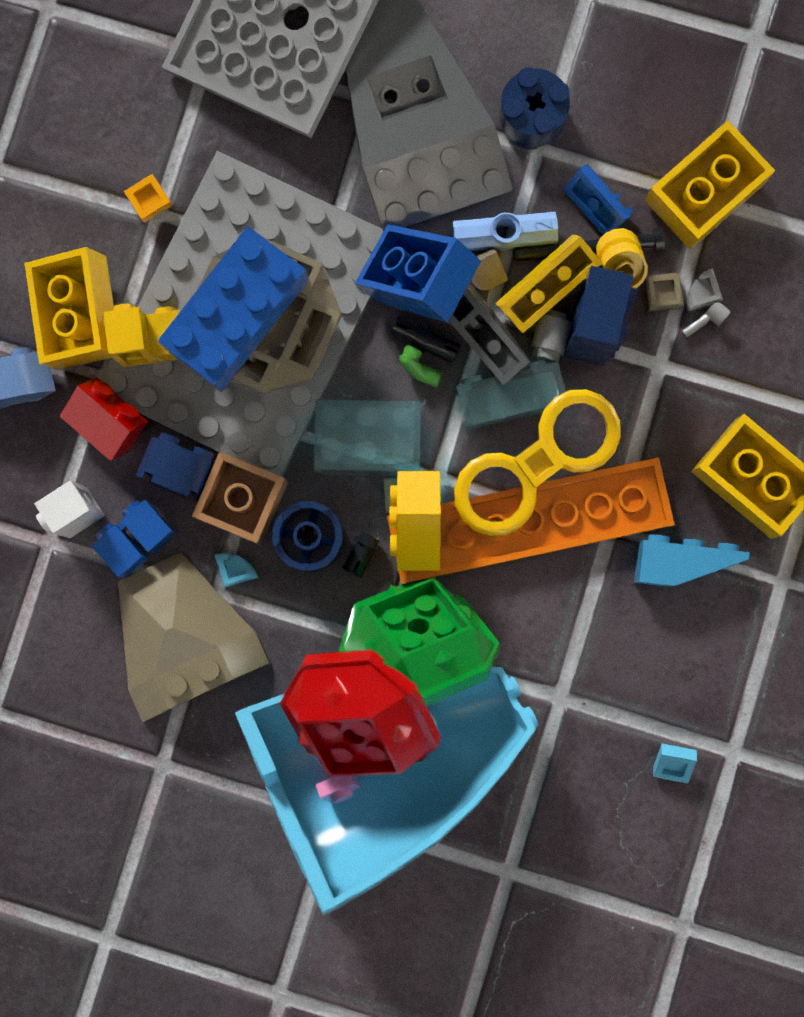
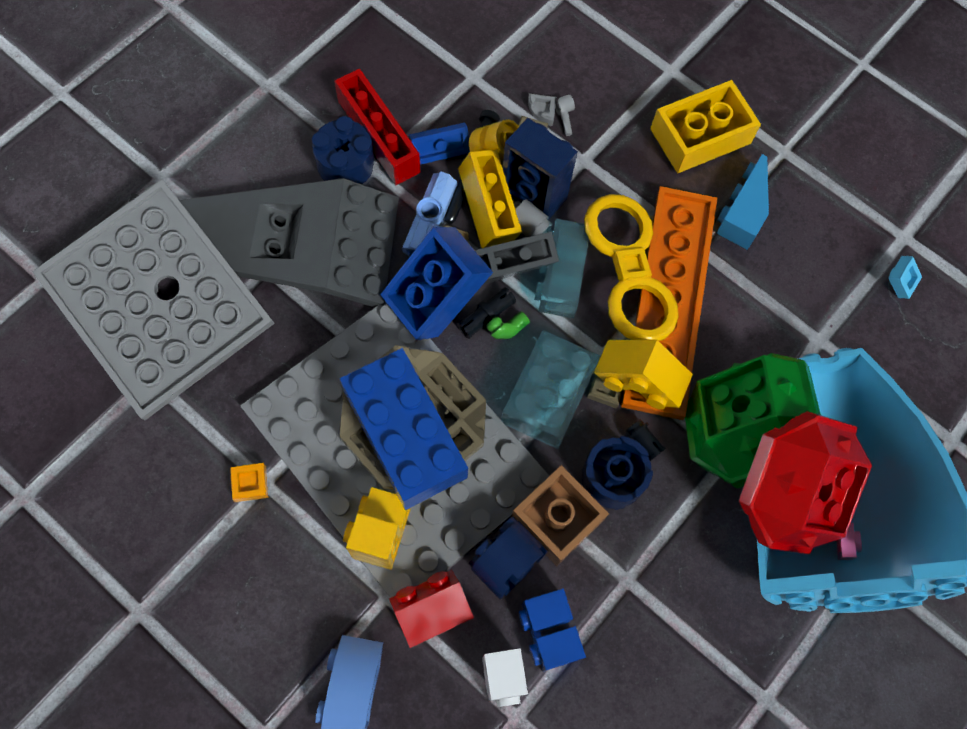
camera: 80 degrees left, 15 degrees down
(68, 307) = (316, 590): yellow brick -> none
(181, 636) = (660, 631): dark tan wedge -> none
(234, 569) = (614, 554): medium azure tile -> none
(581, 126) = (388, 139): none -> red brick
(709, 185) = (468, 65): yellow brick -> none

